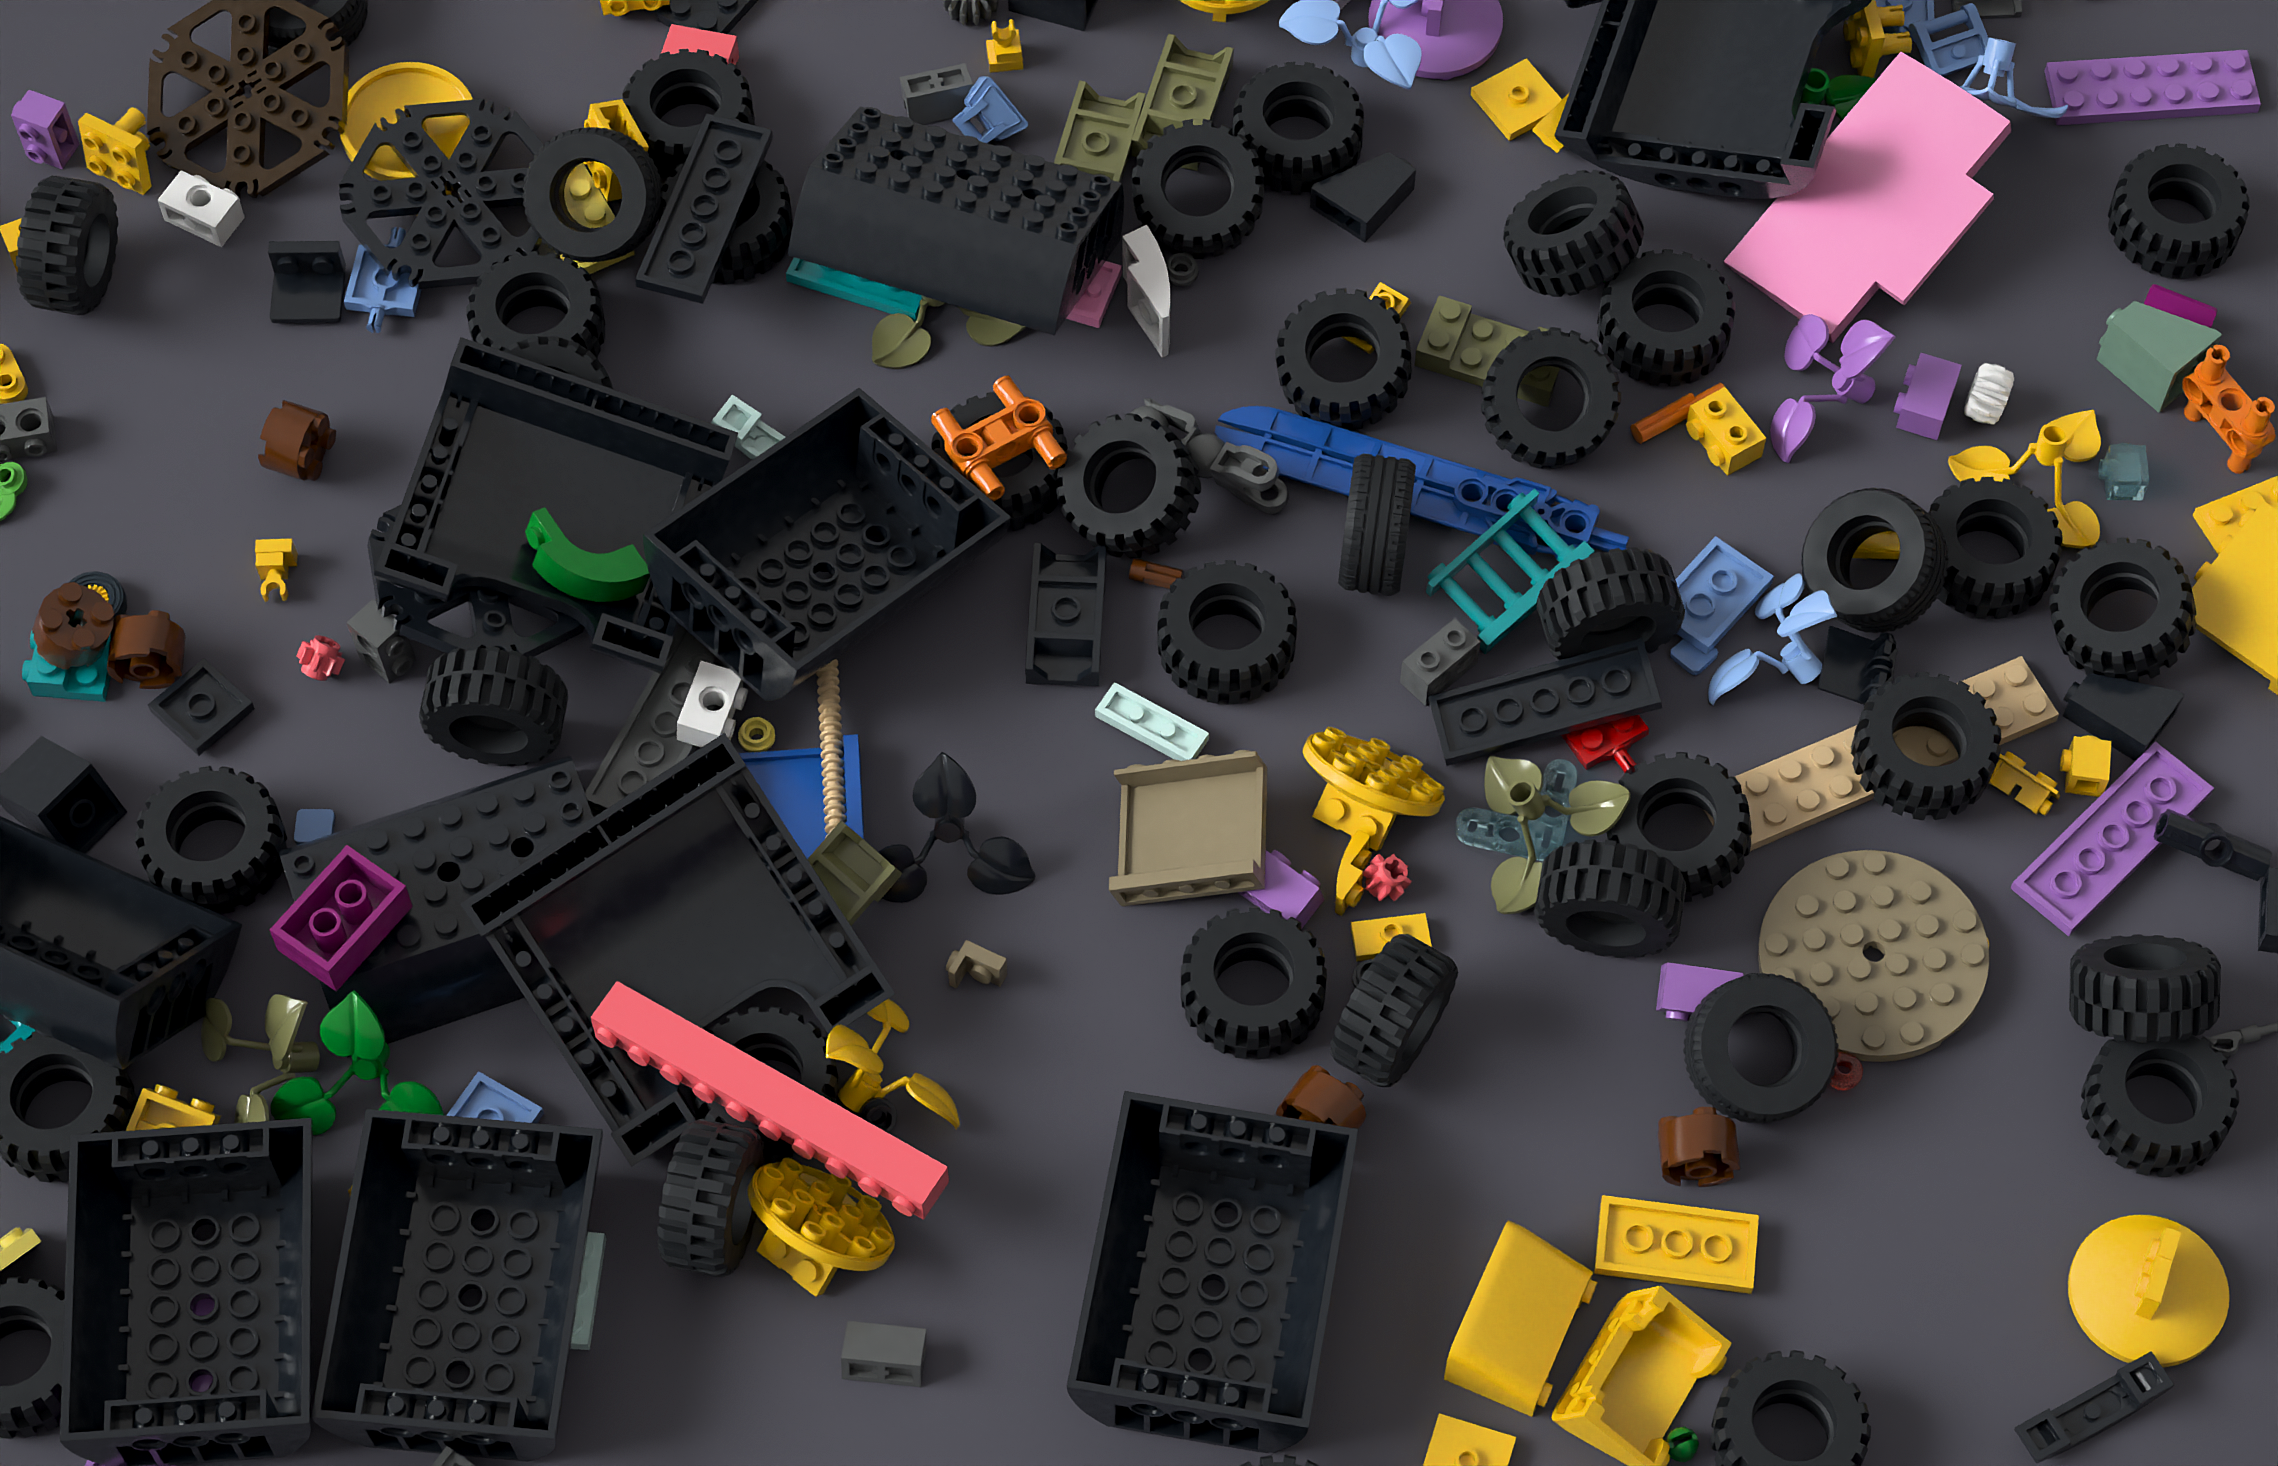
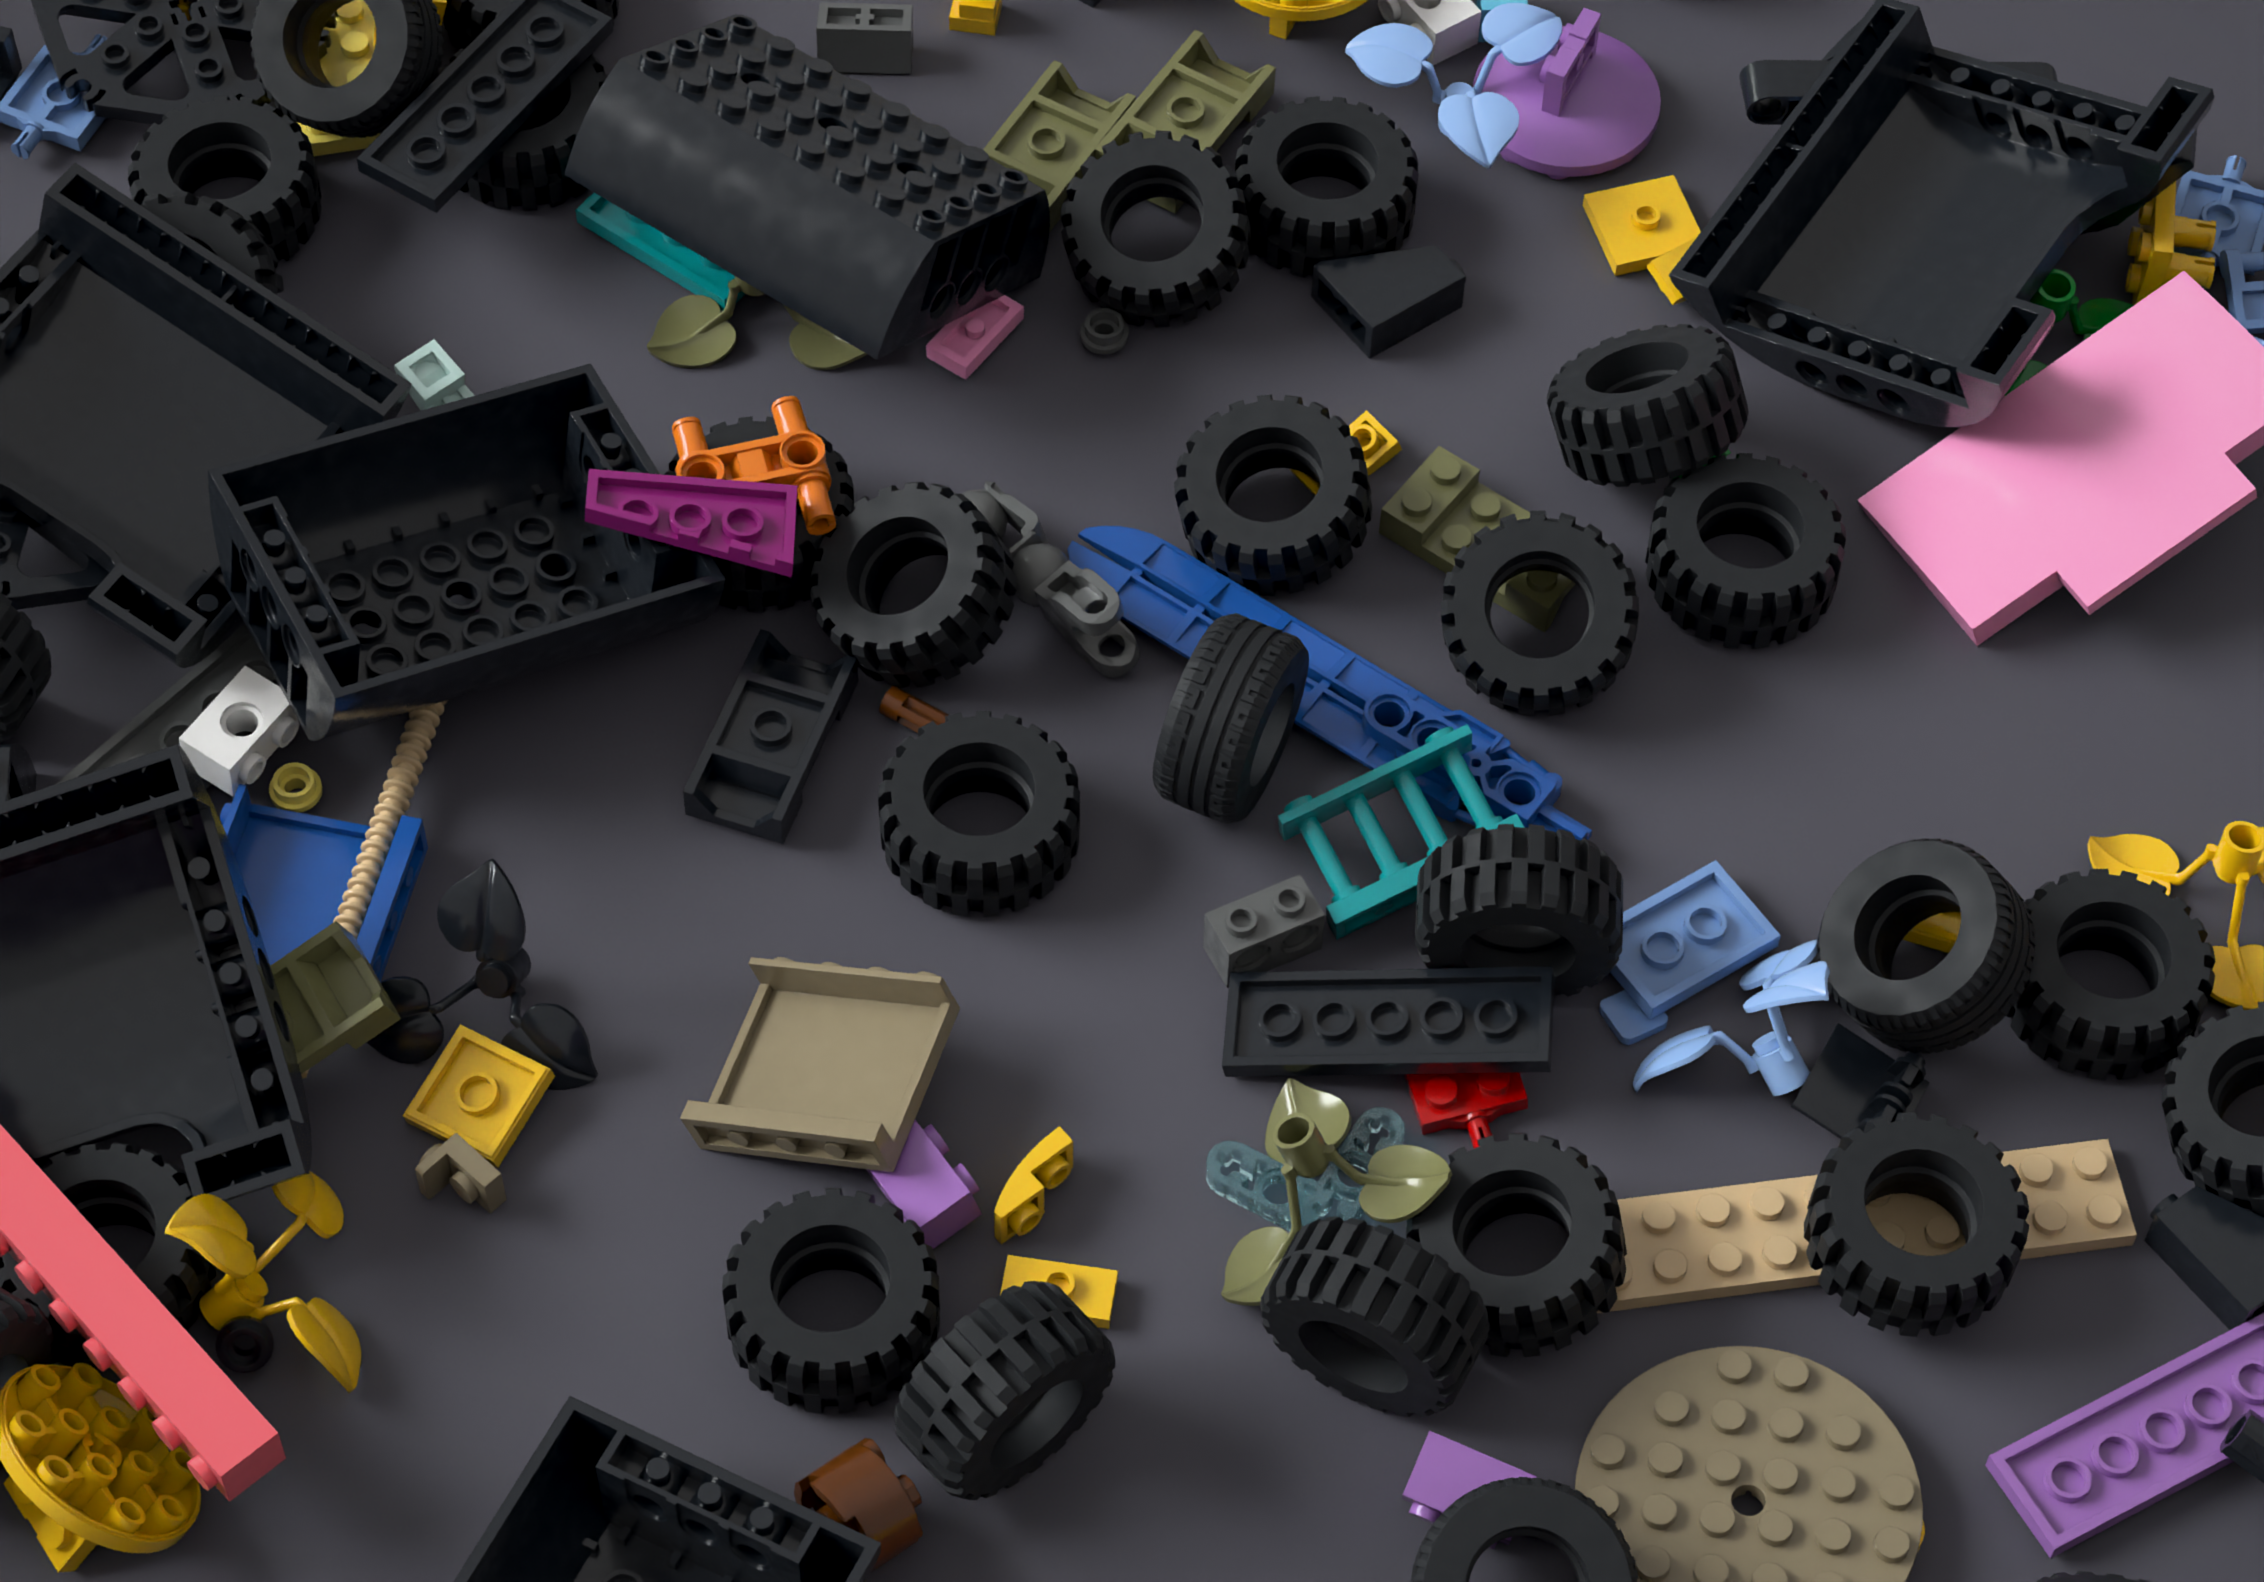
camera: 15 degrees right, 5 degrees down
(583, 573) = (132, 512): green arch -> none
(965, 909) = (479, 1094): none -> yellow plate
(989, 476) = (706, 515): none -> magenta wing
(992, 110) = (925, 71): medium blue piece -> none
(1147, 286) = (1044, 339): white slope -> none
(1151, 724) = (832, 910): light aqua plate -> none
(1366, 787) = (1096, 1068): yellow bracket -> none
(1386, 877) = (1079, 1205): coral gear -> none
(1668, 416) = (1715, 683): orange axle -> none
(1725, 431) = (1779, 723): yellow brick -> none
(1860, 349) = (1993, 650): medium lavender plant -> none
(1928, 395) = (2085, 745): medium lavender brick -> none
(1989, 393) = (2174, 764): white gear -> none
(2035, 789) = (2066, 1334): yellow hinge -> none
(2086, 765) = (2153, 1318): yellow brick -> none

